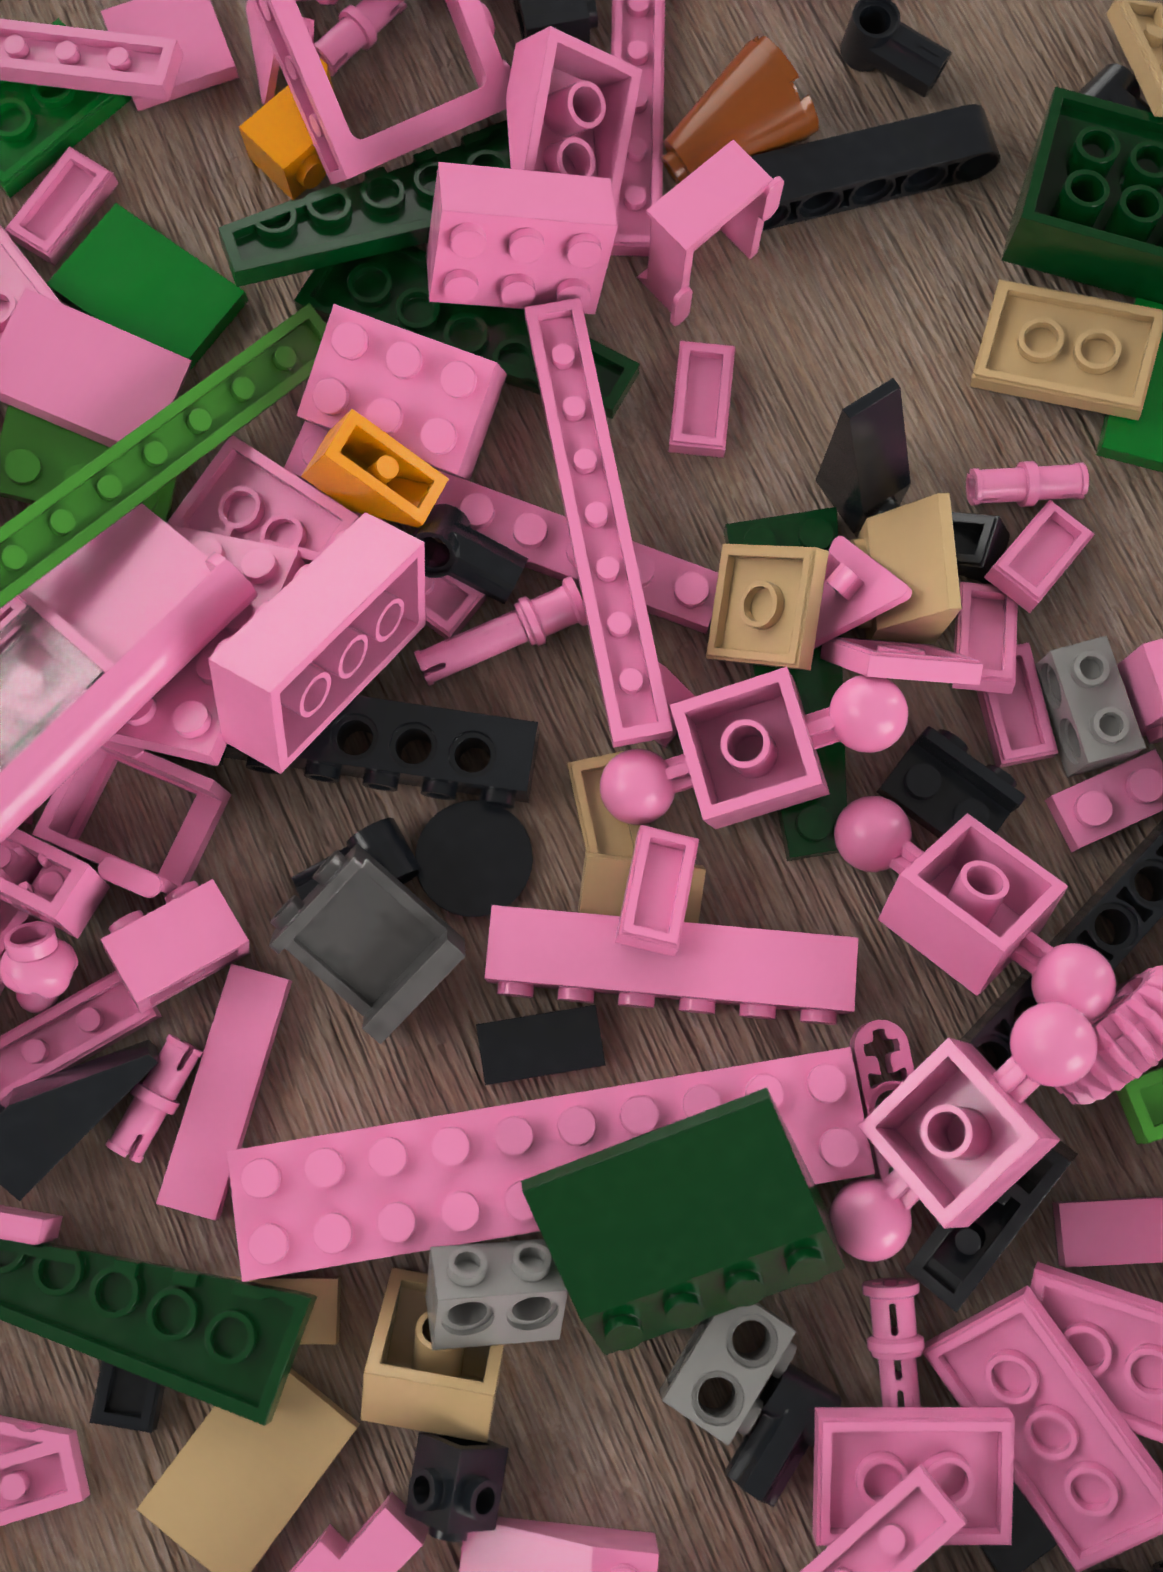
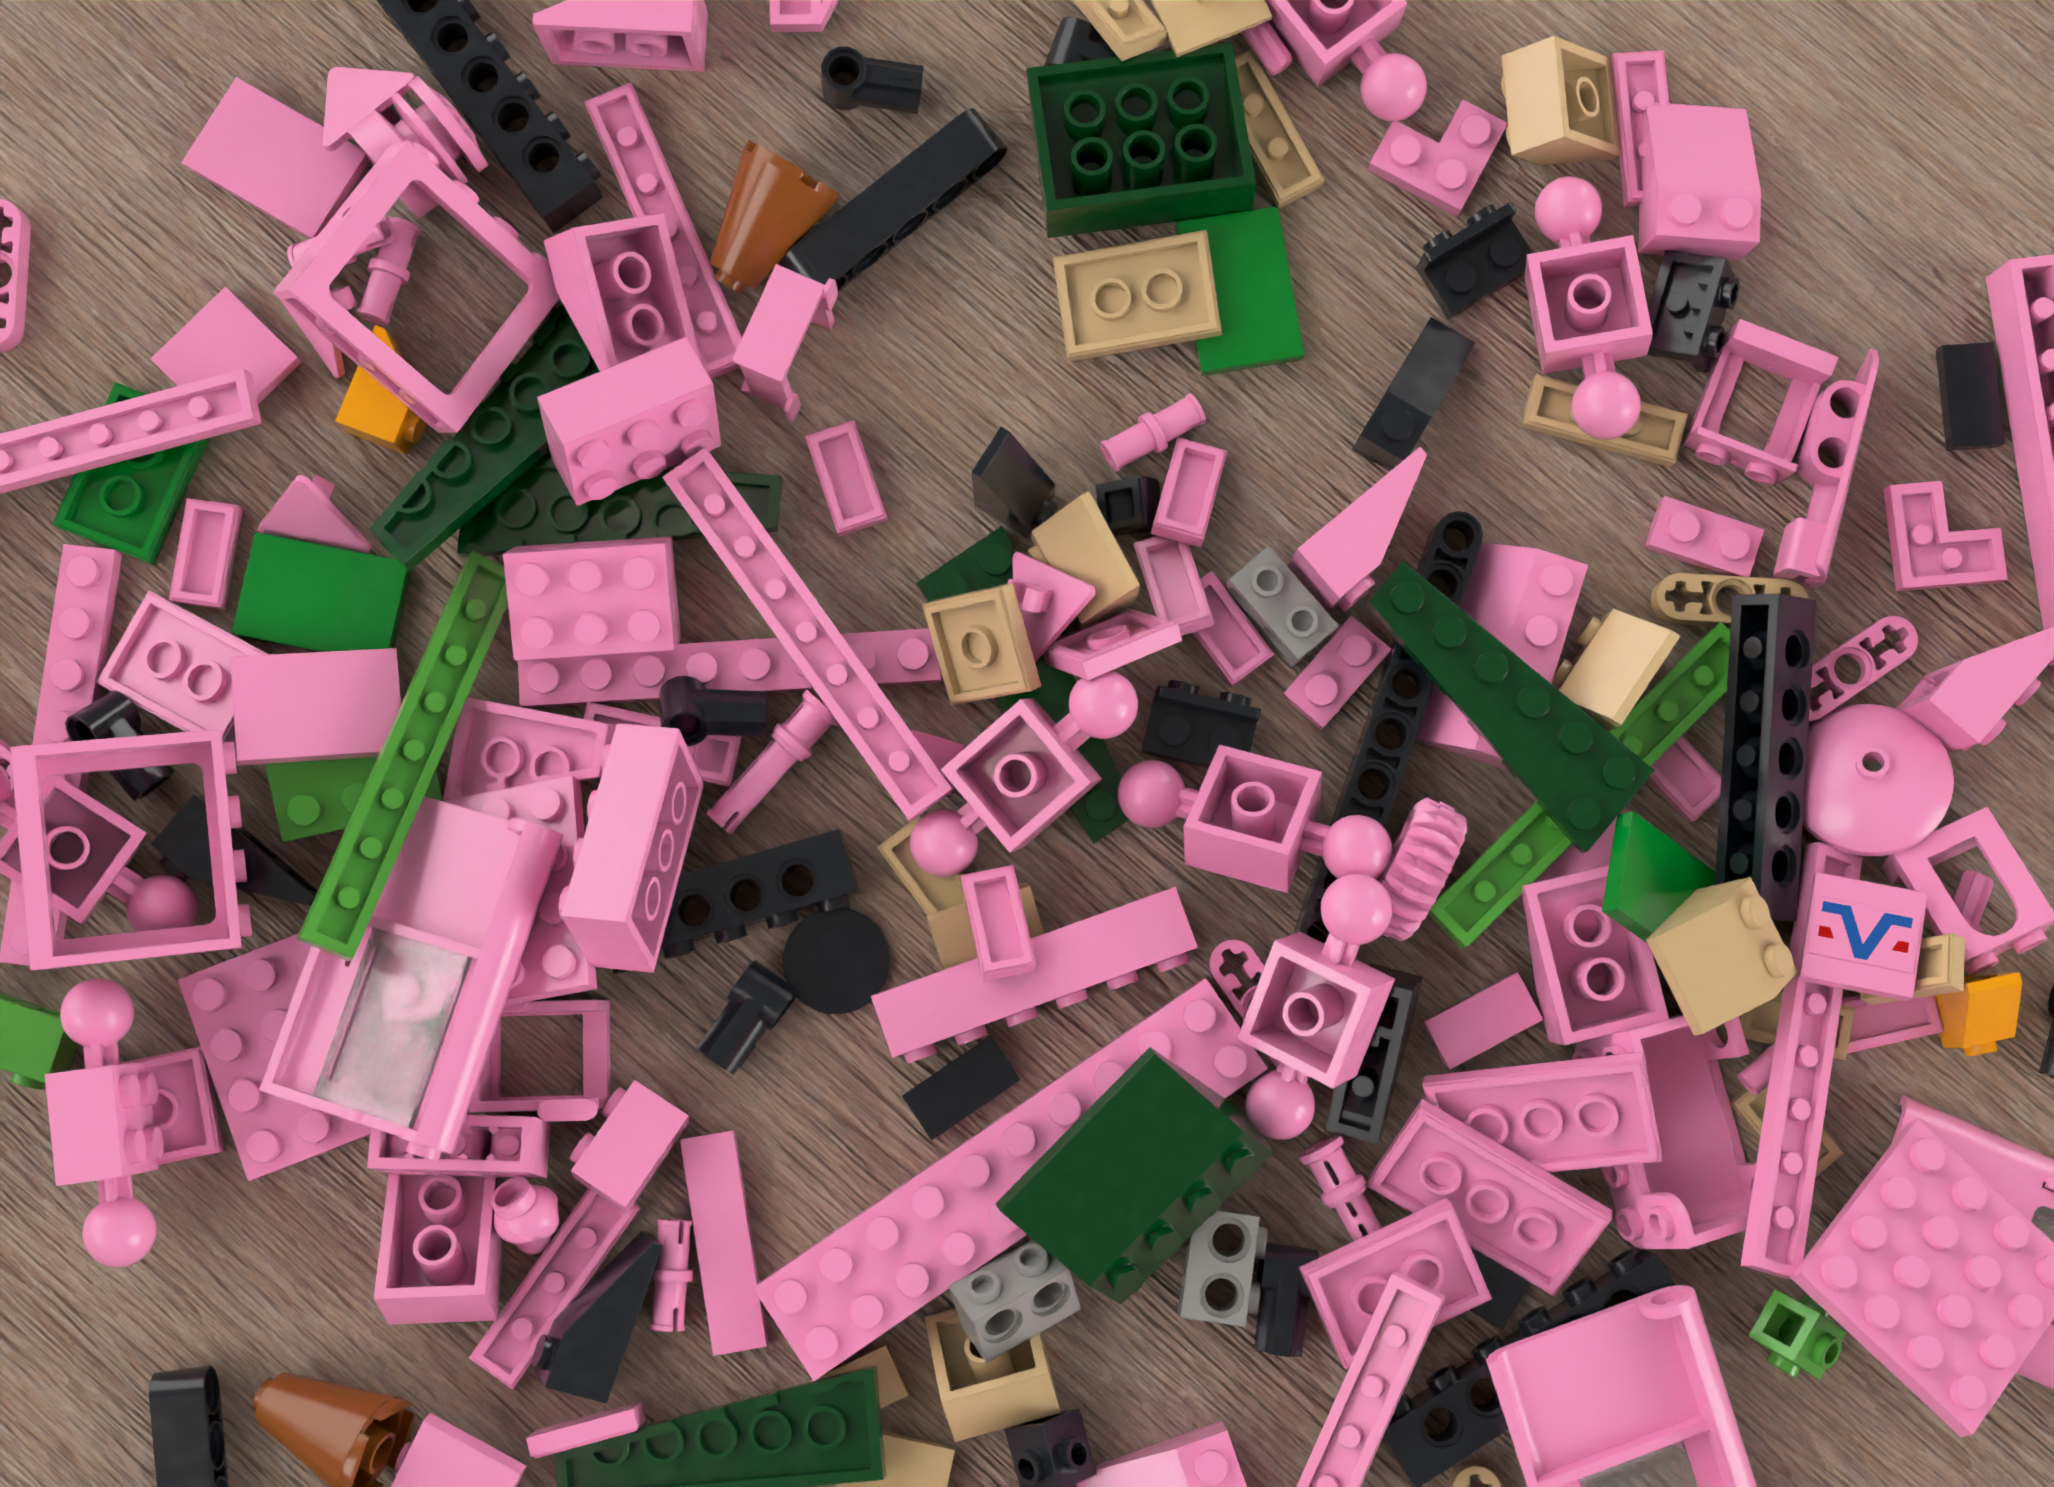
camera: 25 degrees left, 5 degrees up
(171, 205) = (310, 517): none -> bright pink piece
(368, 939) = (785, 1069): flat silver panel -> none
(374, 473) = (605, 682): light orange slope -> none

